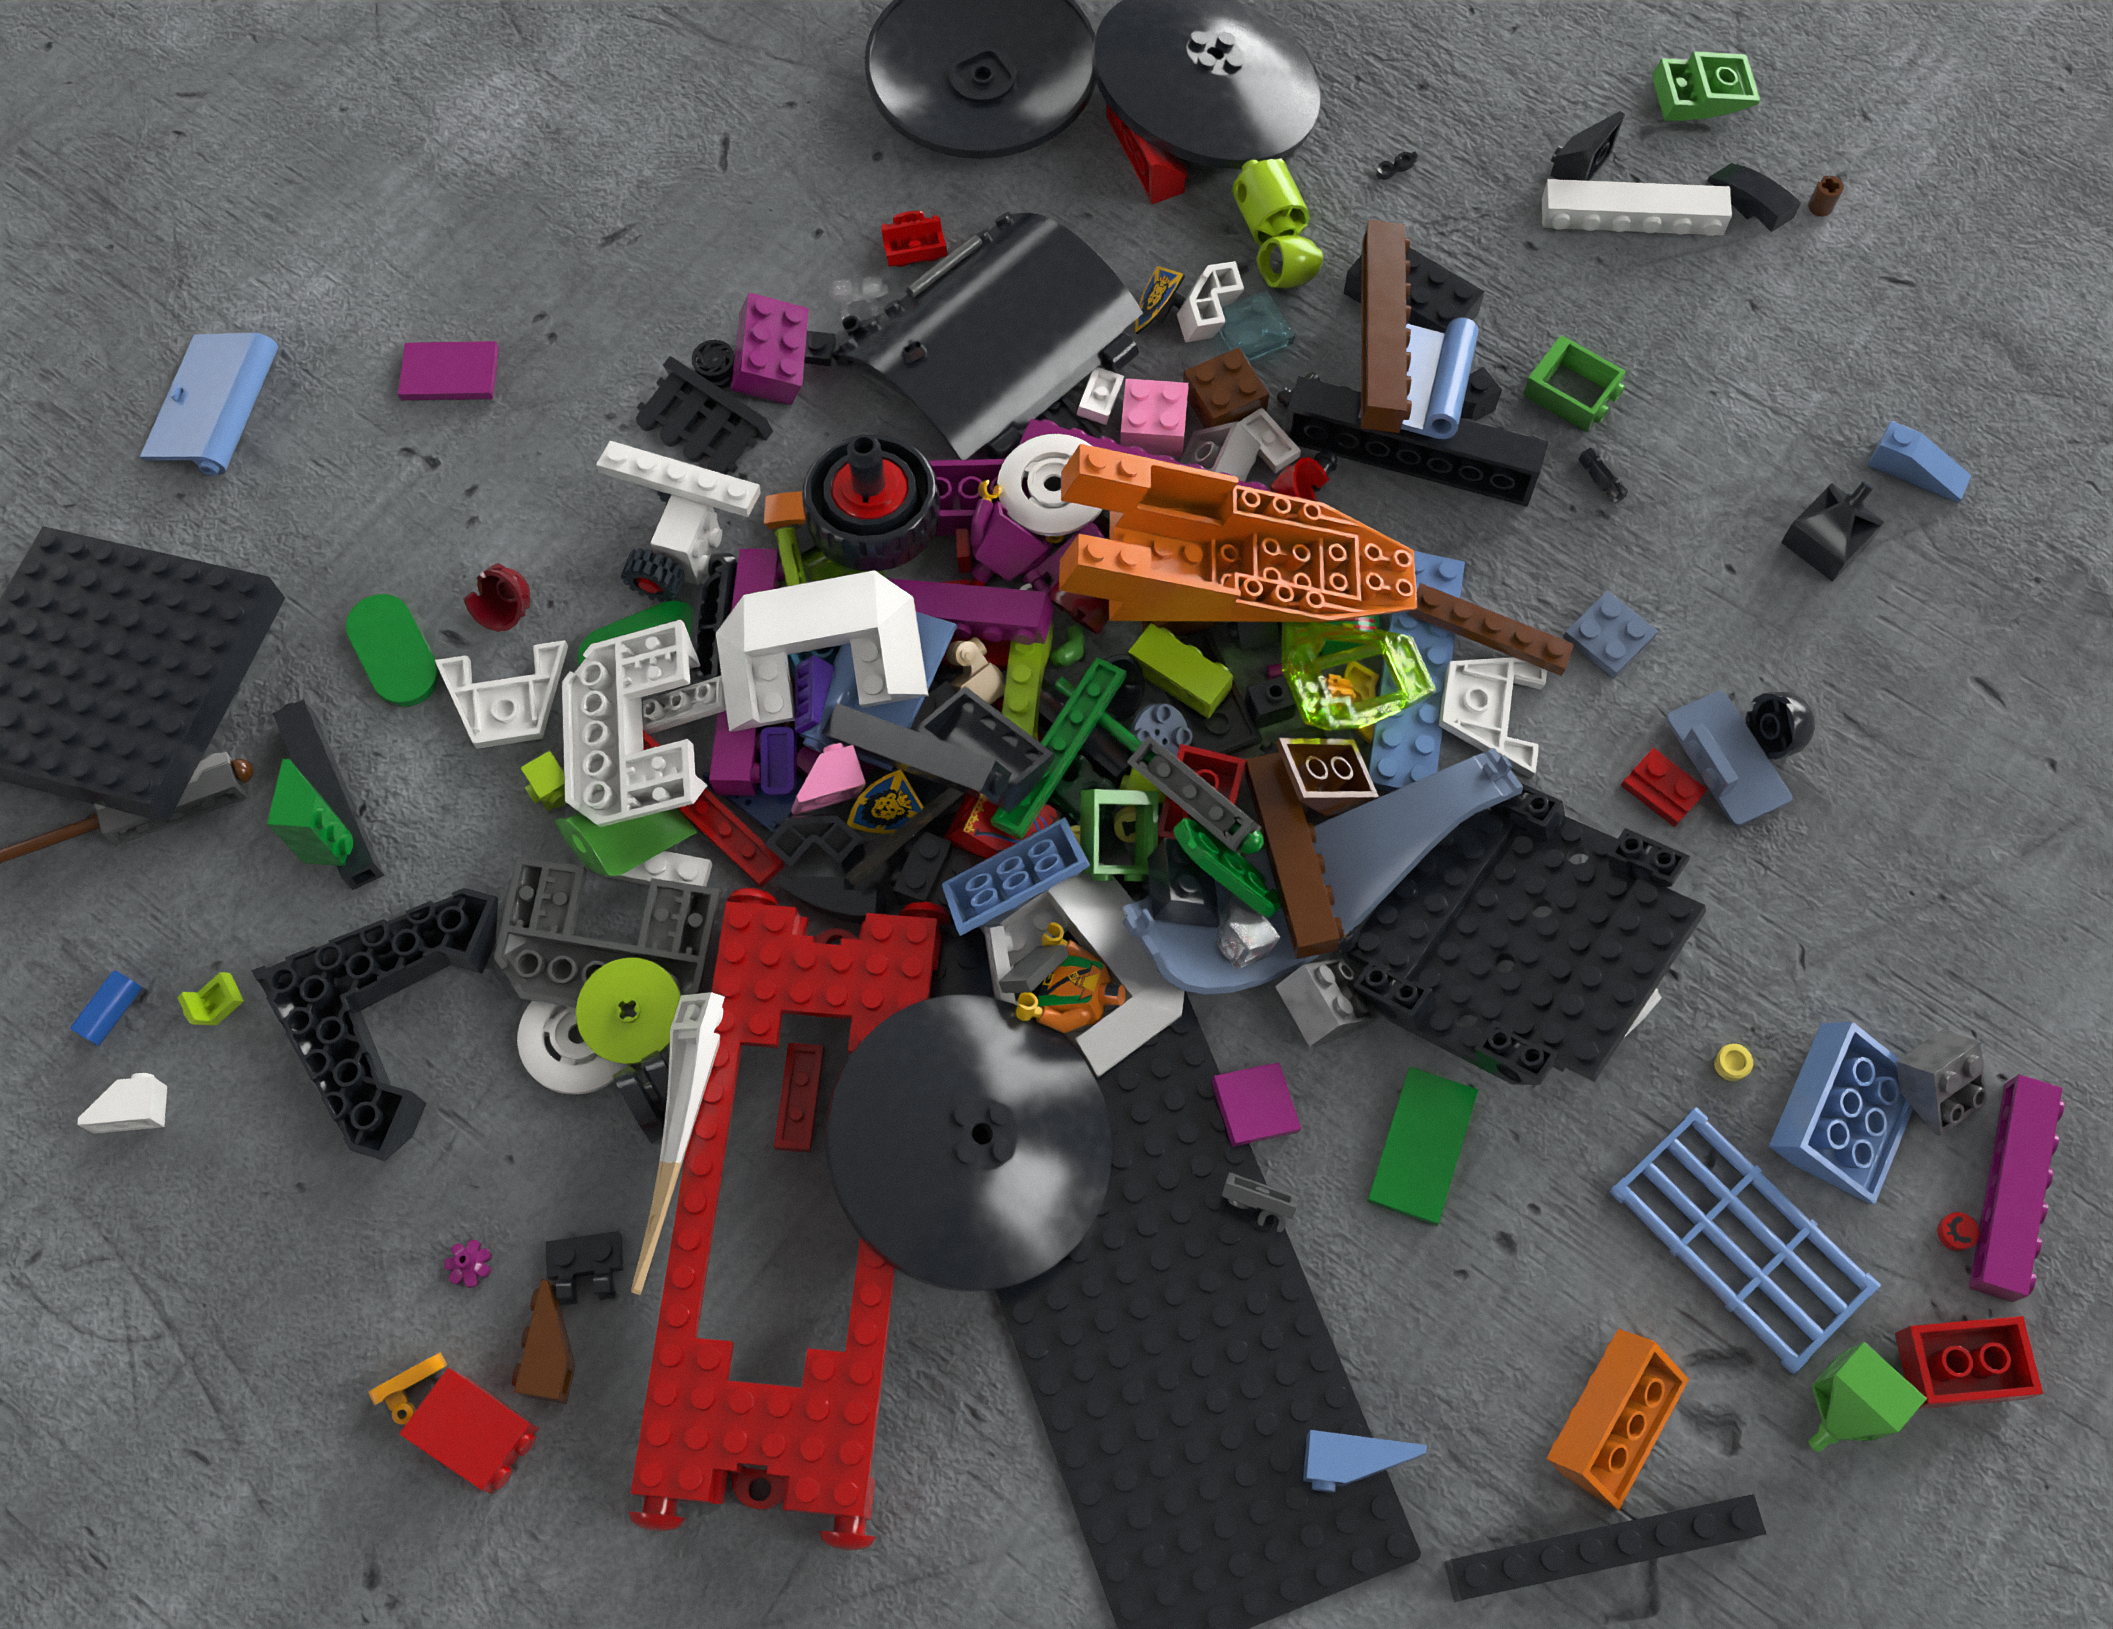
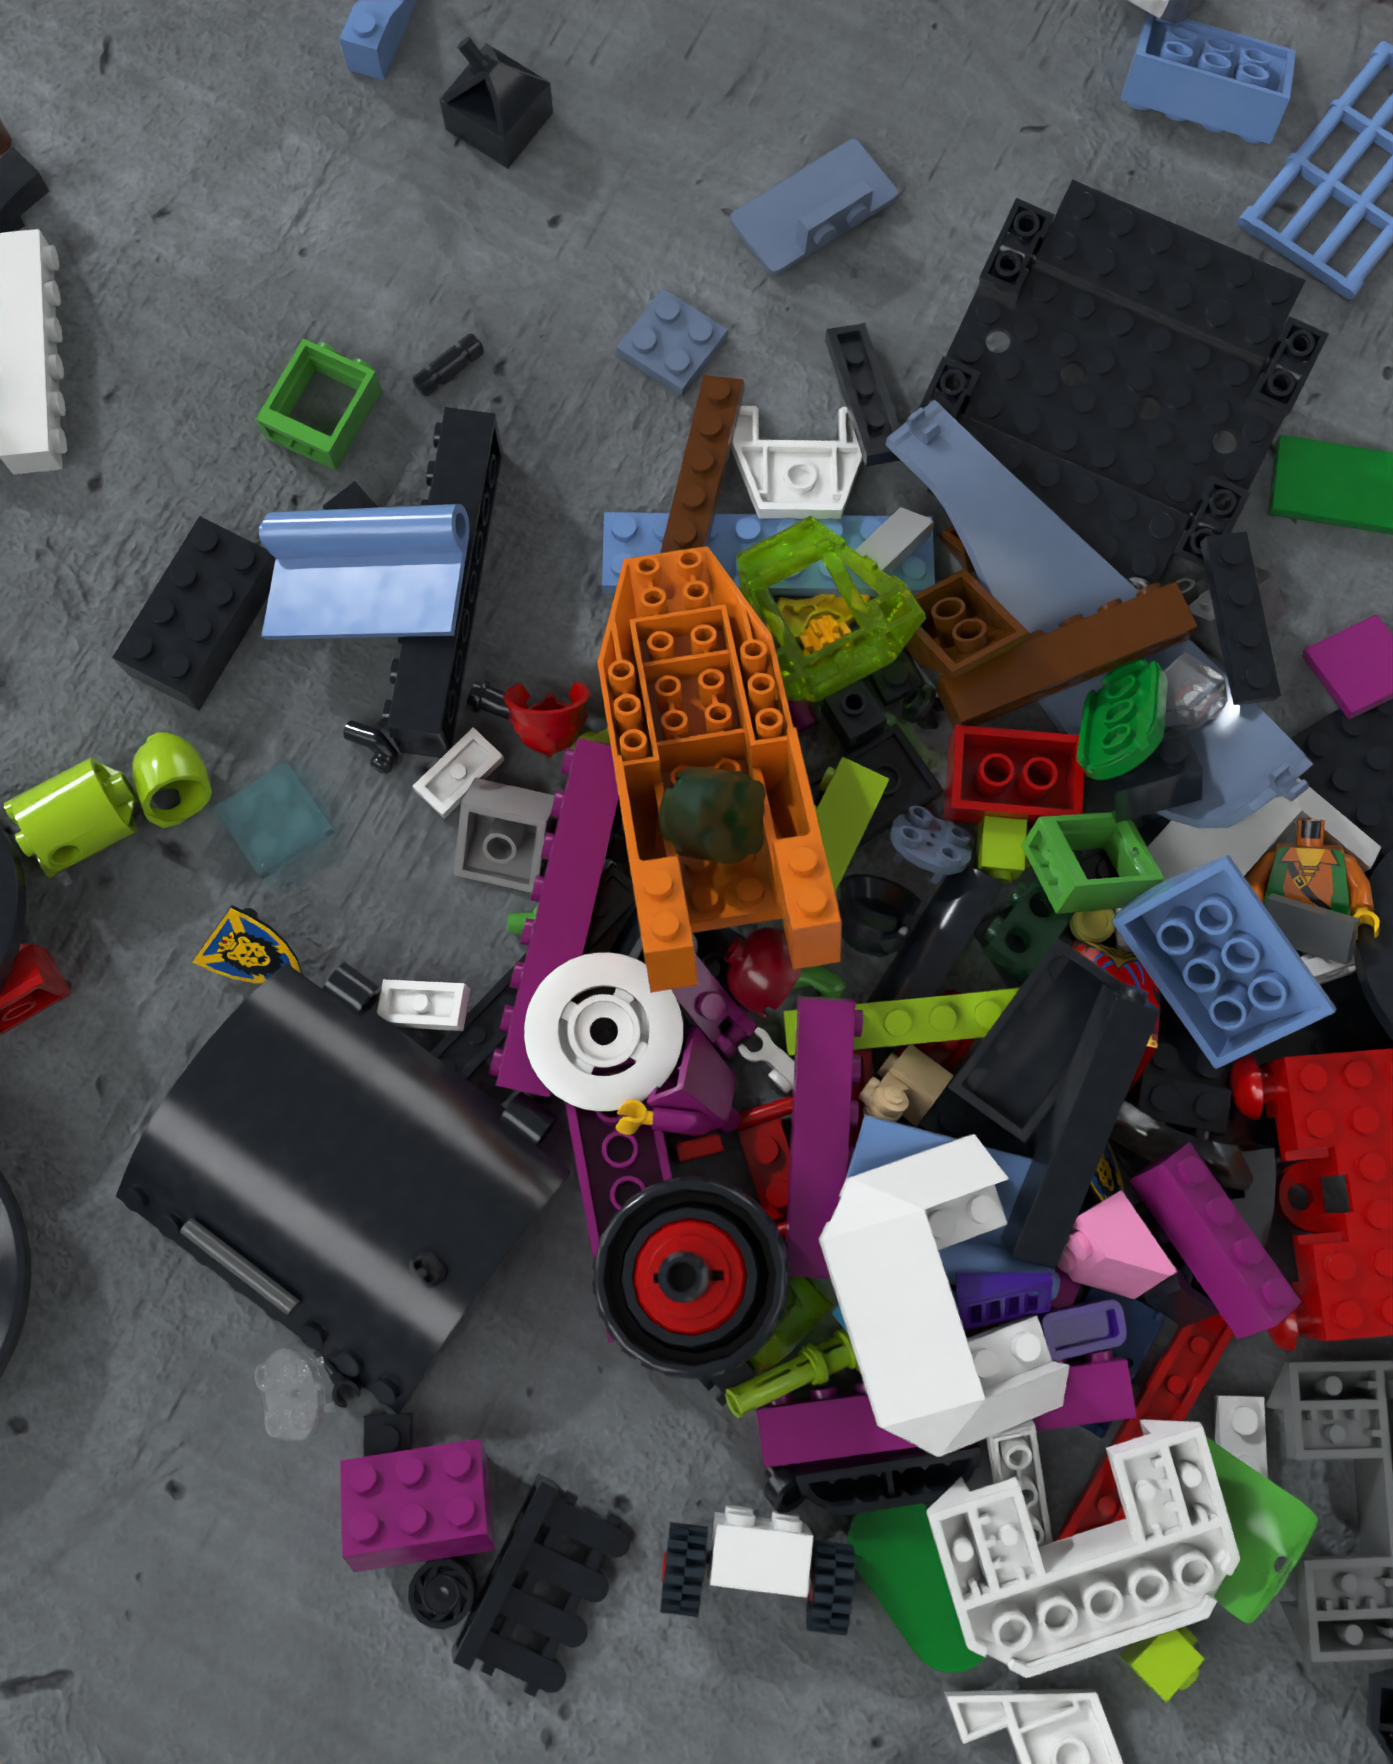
camera: 105 degrees left, 10 degrees up
(678, 478) = (695, 1584): white plate -> none
(784, 510) = (670, 1412): orange slope -> none
(816, 847) = (1215, 1242): none -> magenta brick
(913, 239) = (179, 1331): red slope -> none
(1065, 741) = (982, 933): green tile -> none
(1154, 416) = (449, 925): bright pink brick -> none
(1183, 786) = (1023, 794): dark grey piece -> none
(1186, 523) = (714, 815): none -> brick
(1202, 310) = (265, 887): white brick -> none
(1225, 389) = (395, 836): reddish brown brick -> none
(1302, 983) = (1240, 618): none -> black plate
(1384, 327) = (300, 618): reddish brown brick -> none
(1405, 747) = (896, 539): none -> light grey slope
(1552, 757) = (863, 391): none -> black plate
(1664, 787) = (863, 272): red plate -> none
(1733, 1062) = (1177, 186): light yellow tile -> none
(1781, 723) = (771, 147): black cylinder -> none

